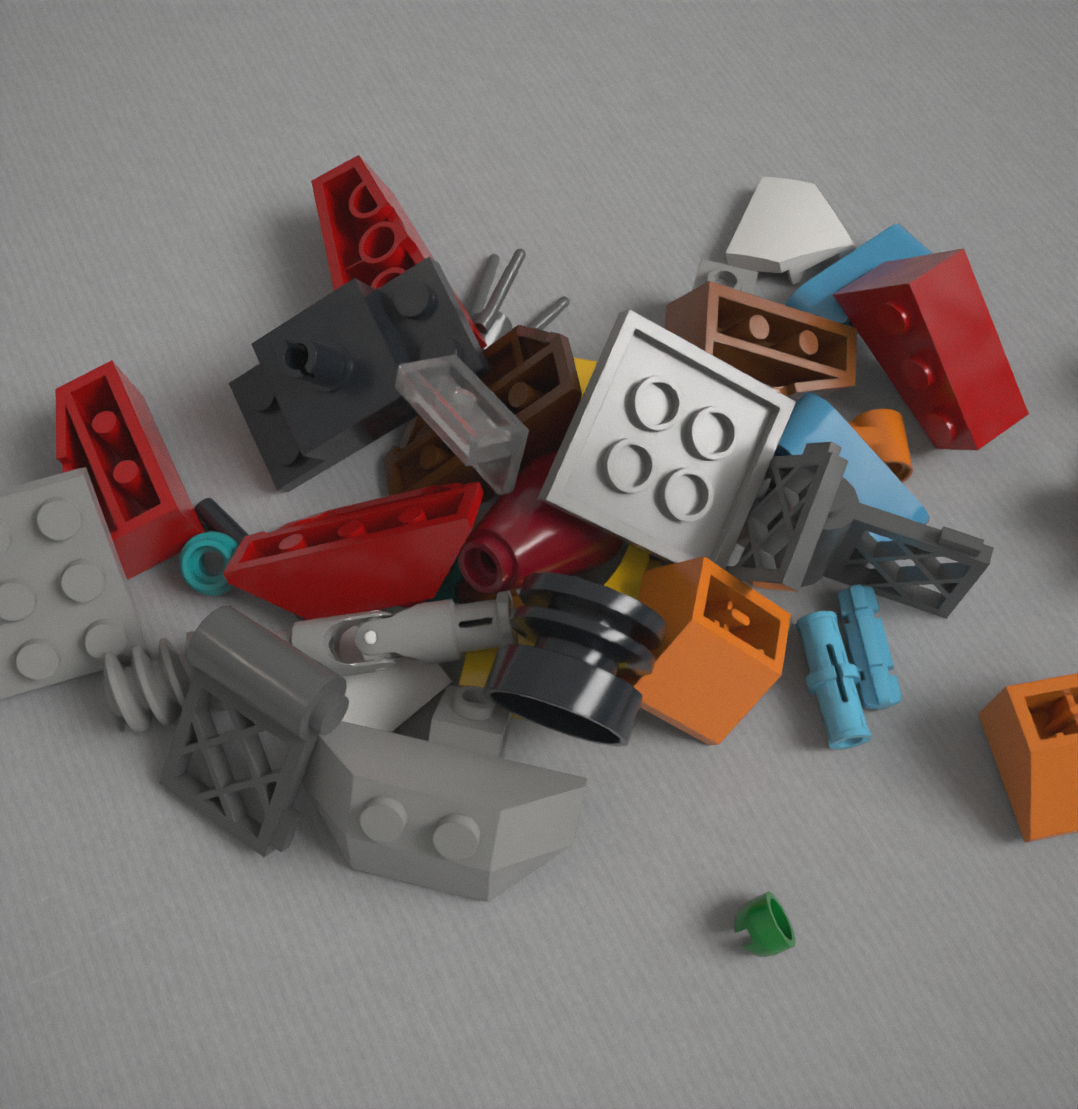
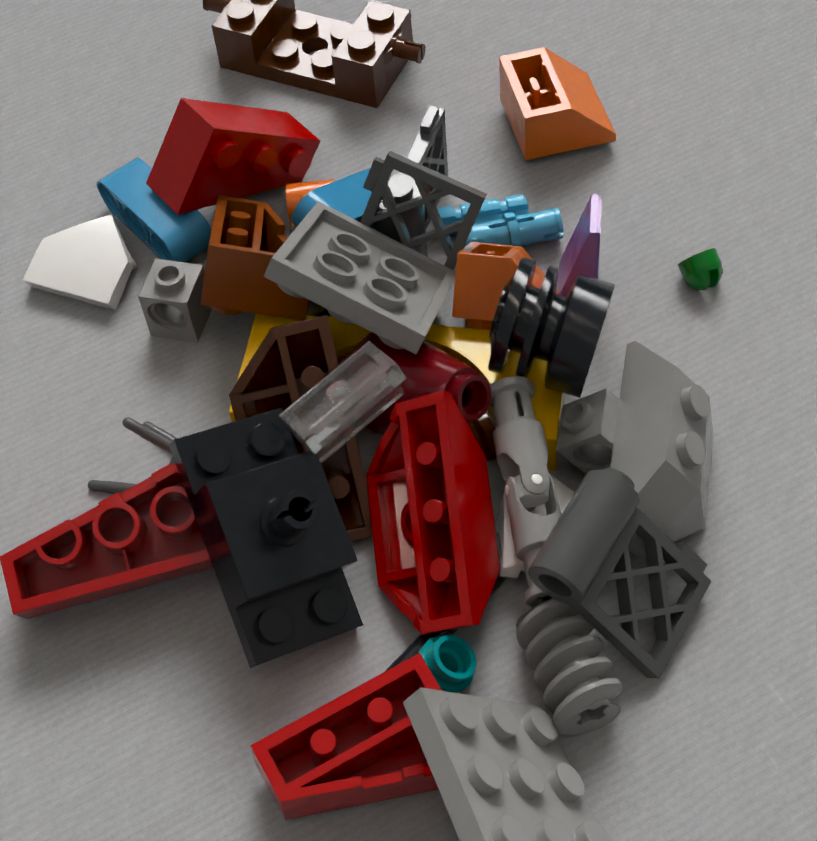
camera: 85 degrees left, 10 degrees down
(769, 760) = (583, 247): none -> medium lavender slope

